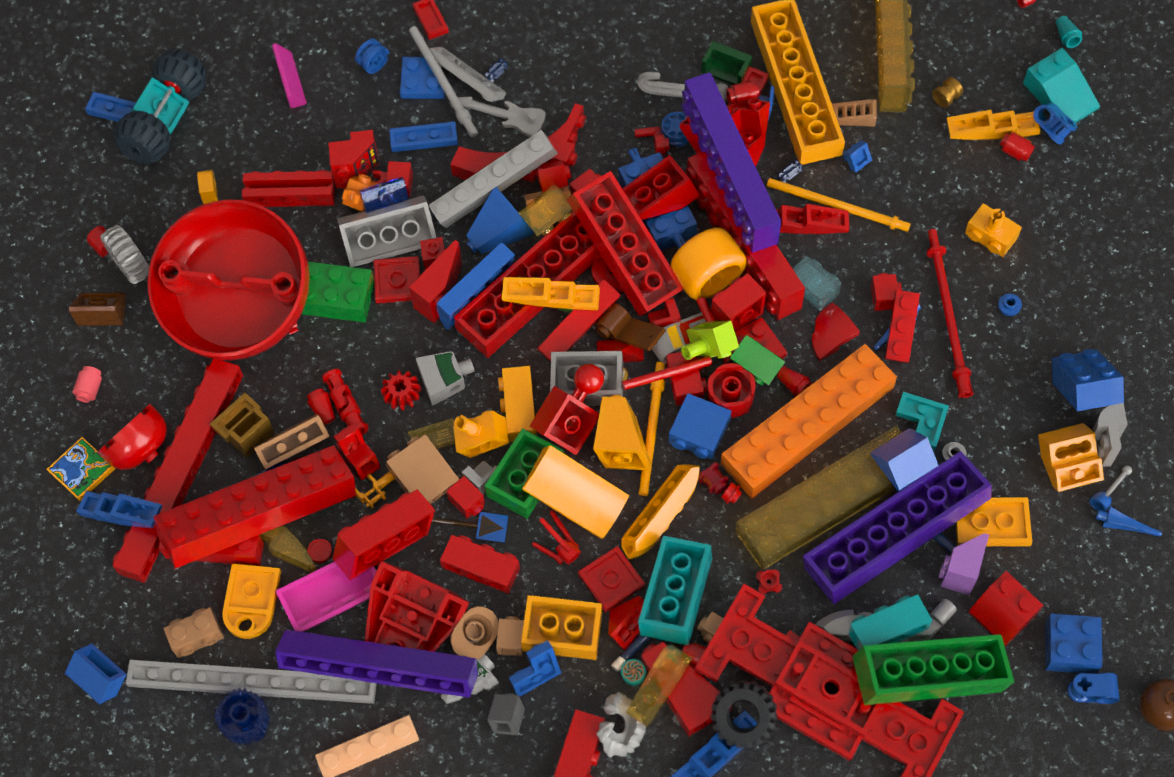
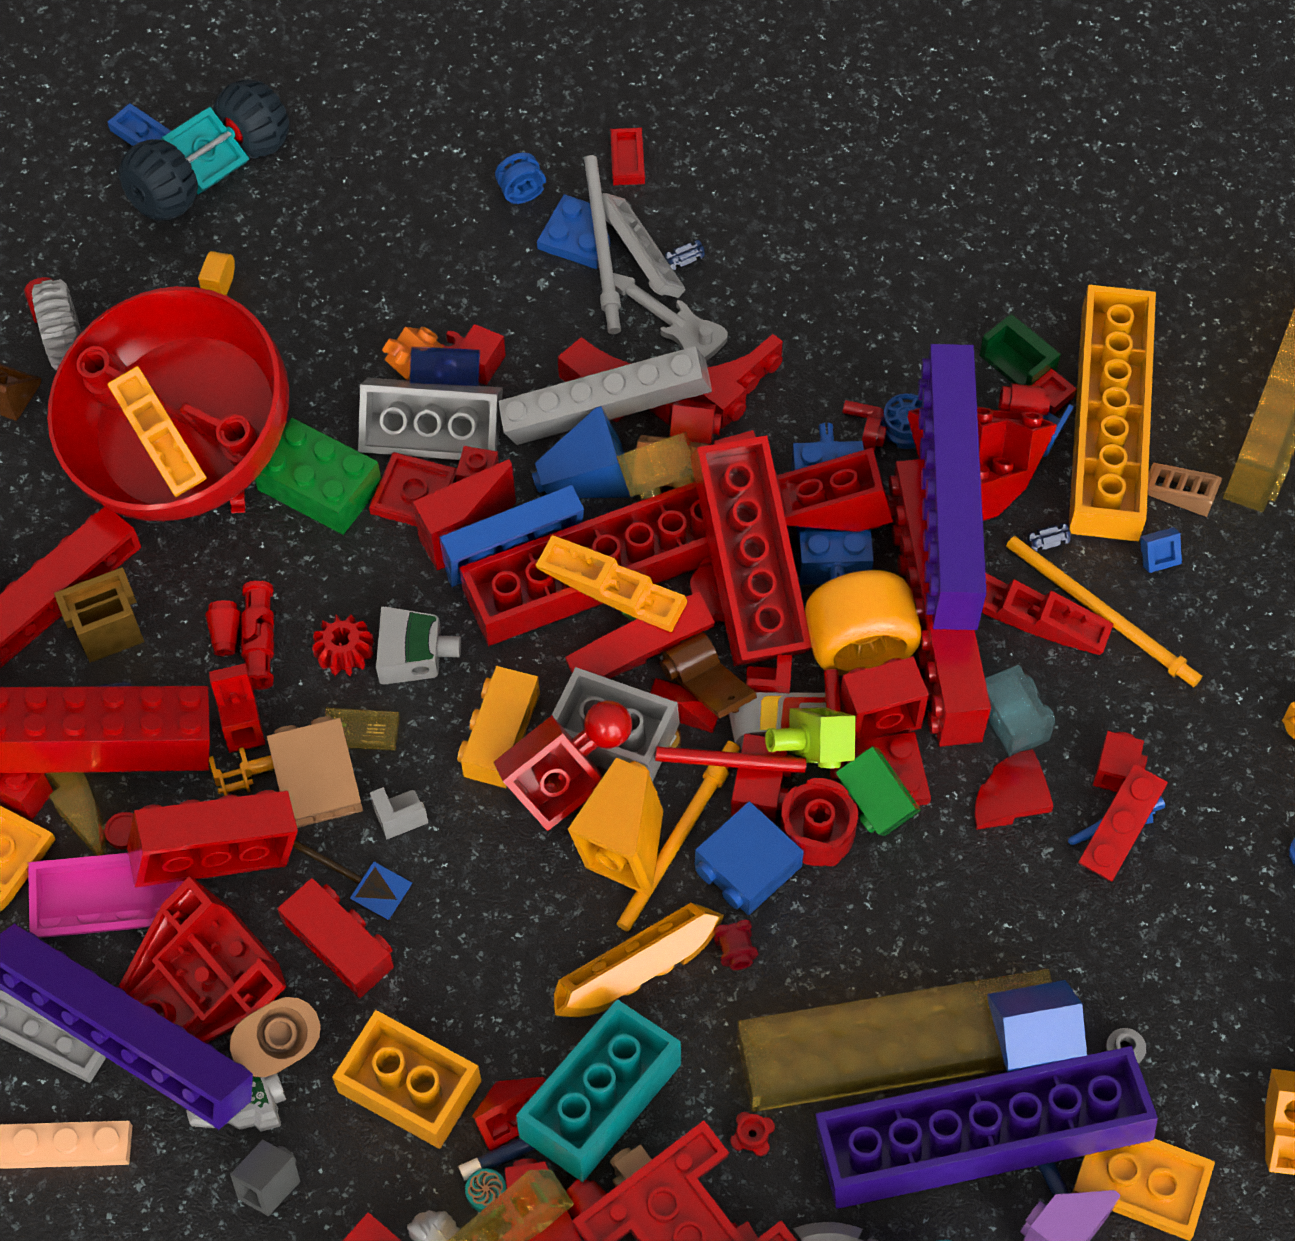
camera: 20 degrees right, 5 degrees down
(233, 300) = (156, 431): none -> light orange slope
(289, 76) = (397, 168): dark pink slope -> none
(289, 188) = (323, 316): red brick -> none
(291, 441) = (154, 659): medium nougat brick -> none
(353, 157) = (428, 300): red piece -> none
(423, 136) = (541, 309): blue plate -> none
(466, 497) = (361, 832): red brick -> none
(480, 433) = (420, 746): light orange brick -> none
(510, 636) = (323, 1061): medium nougat brick -> none
(512, 472) = (459, 829): green brick -> none
(542, 669) = (347, 1131): blue plate -> none
(567, 549) = (470, 967): red plant -> none
(575, 491) = (517, 884): light orange slope -> none
(611, 579) = (518, 1035): red tile -> none
(666, 88) = (986, 391): light grey piece -> none
(731, 493) = (754, 976): red plate -> none
(793, 380) = (923, 846): red cone -> none
(808, 421) = (918, 911): orange brick -> none
(927, 413) = (1108, 971): teal plate -> none
(961, 373) = (1188, 928): red bar -> none

